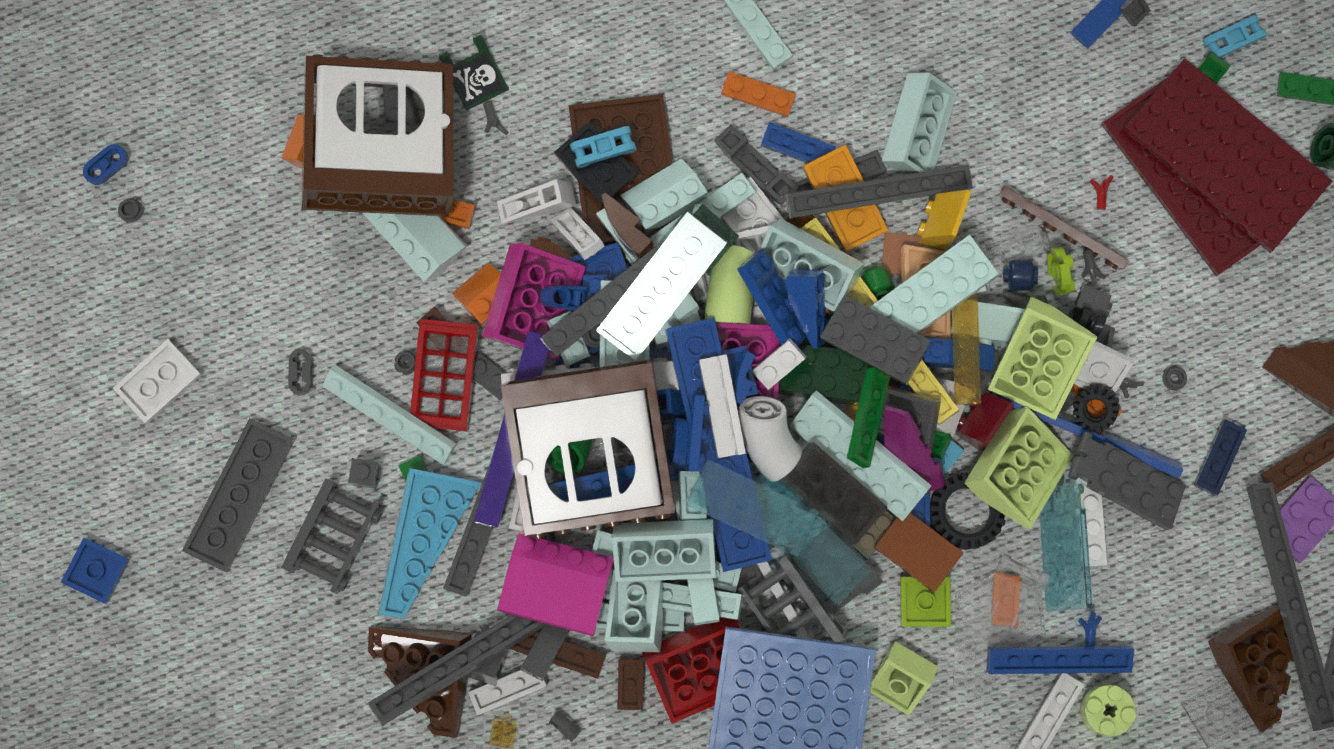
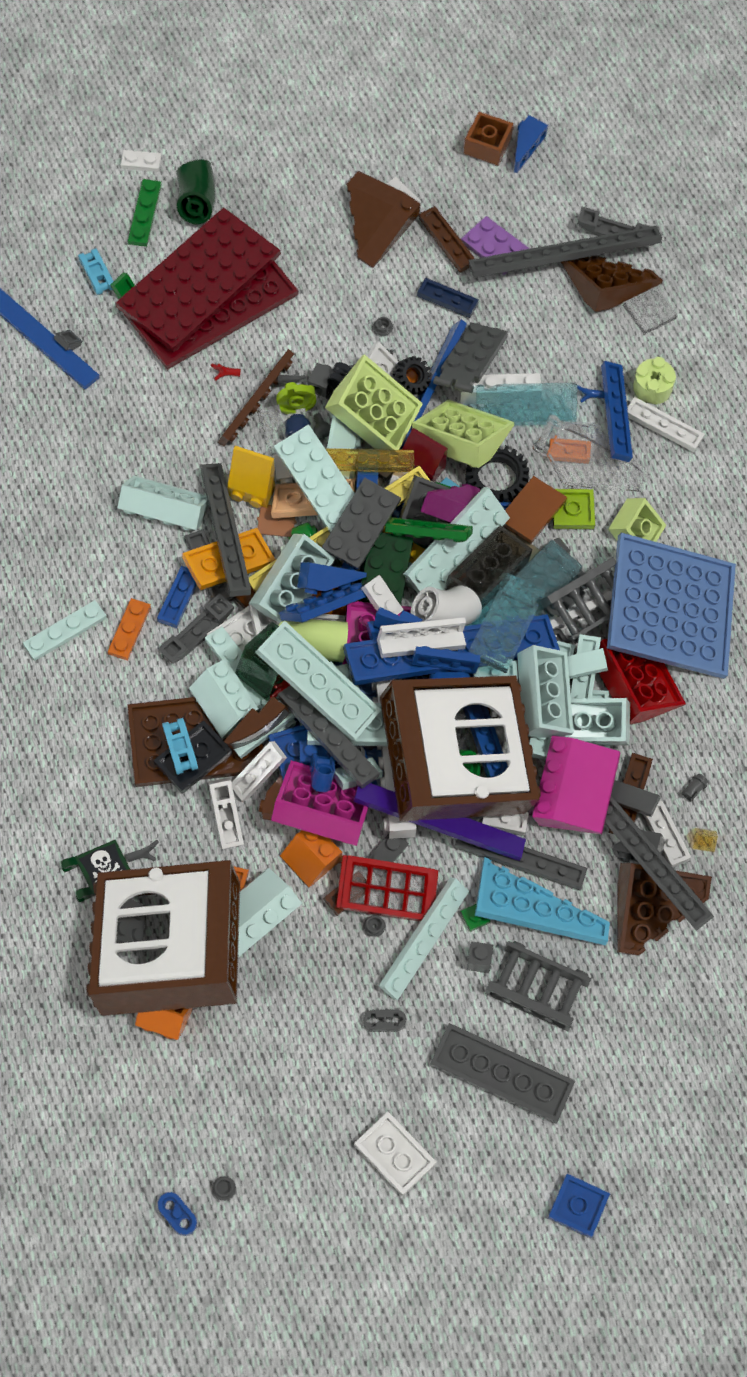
camera: 90 degrees left, 15 degrees down
(630, 684) = (656, 734): reddish brown plate -> none

